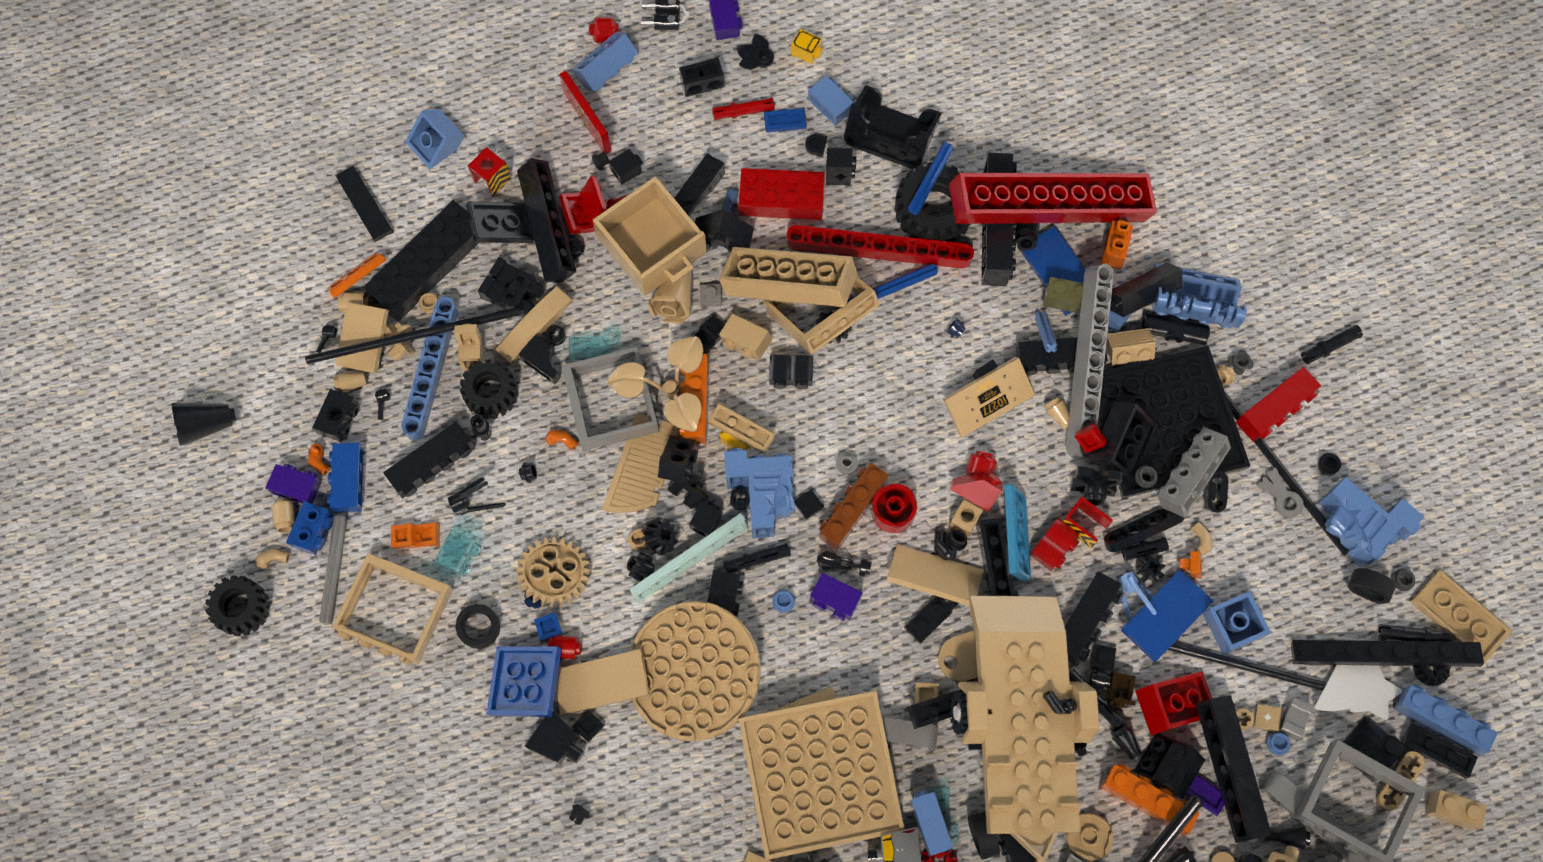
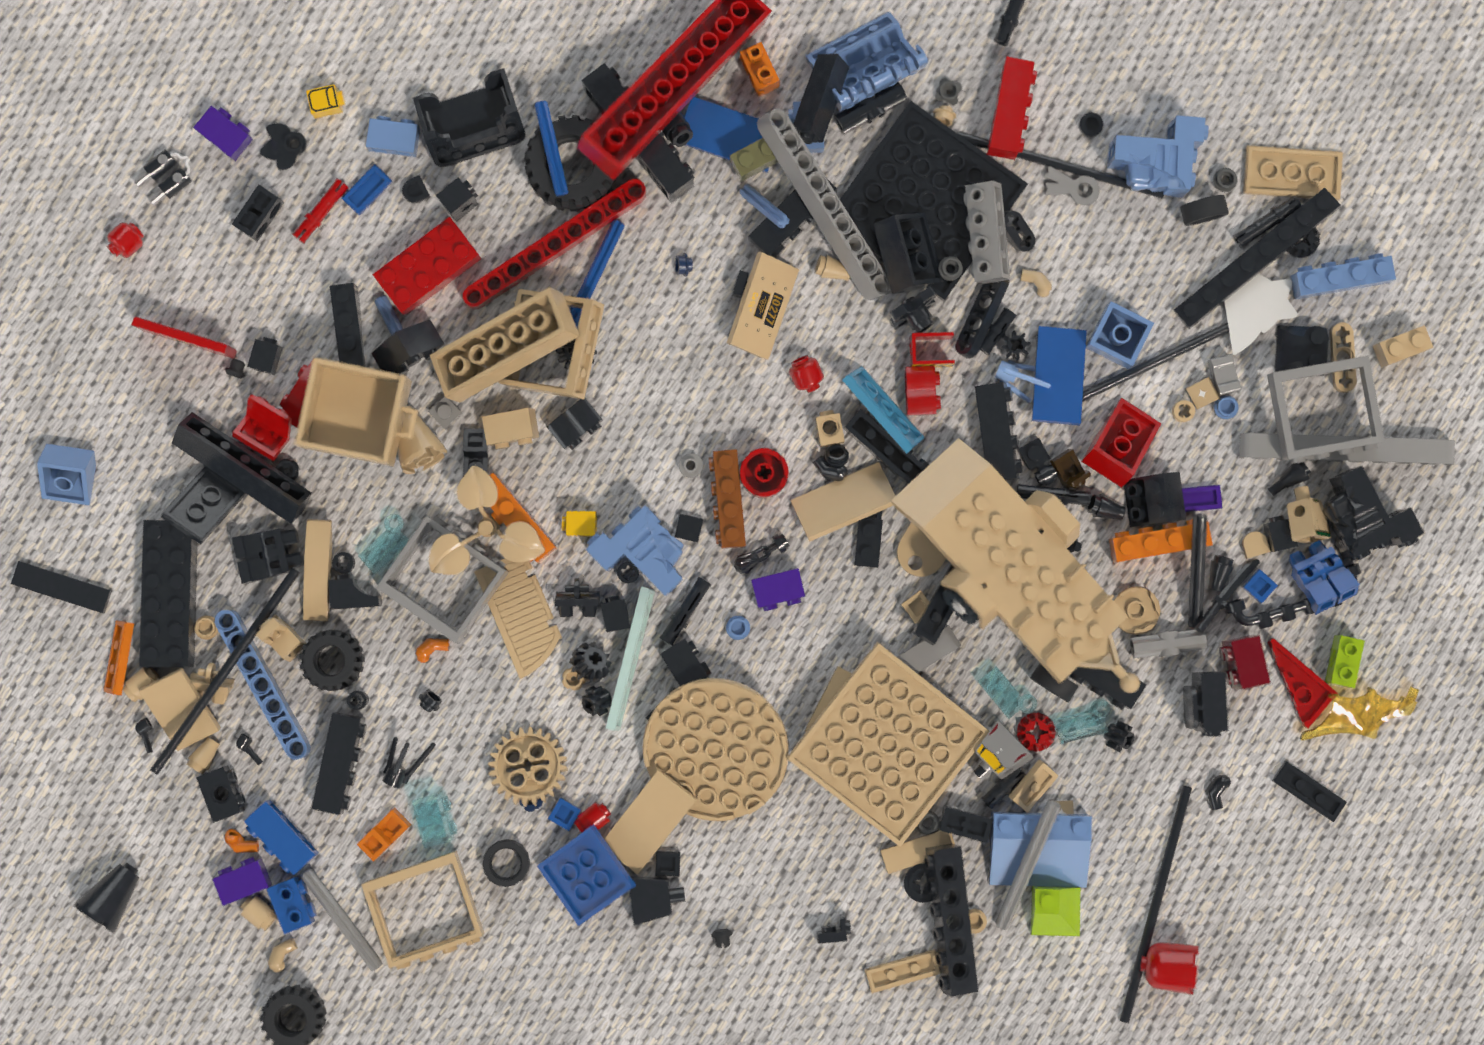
camera: 45 degrees left, 15 degrees up
(494, 177) = (160, 465): red piece -> none
(605, 61) = (155, 271): medium blue brick -> none
(677, 459) = (549, 586): black brick -> none
(741, 428) = (579, 513): tan tile -> none
(931, 823) = (1006, 709): medium blue brick -> none
(978, 489) = (820, 398): slope -> none
(1059, 706) = (1033, 532): black arm -> none
(1090, 438) = (879, 276): red tile -> none
(1130, 346) = (846, 158): tan brick -> none
(1193, 564) = (1047, 312): orange tile -> none
(1233, 769) = (1207, 460): black brick -> none
(1439, 750) = (1355, 306): black plate -> none

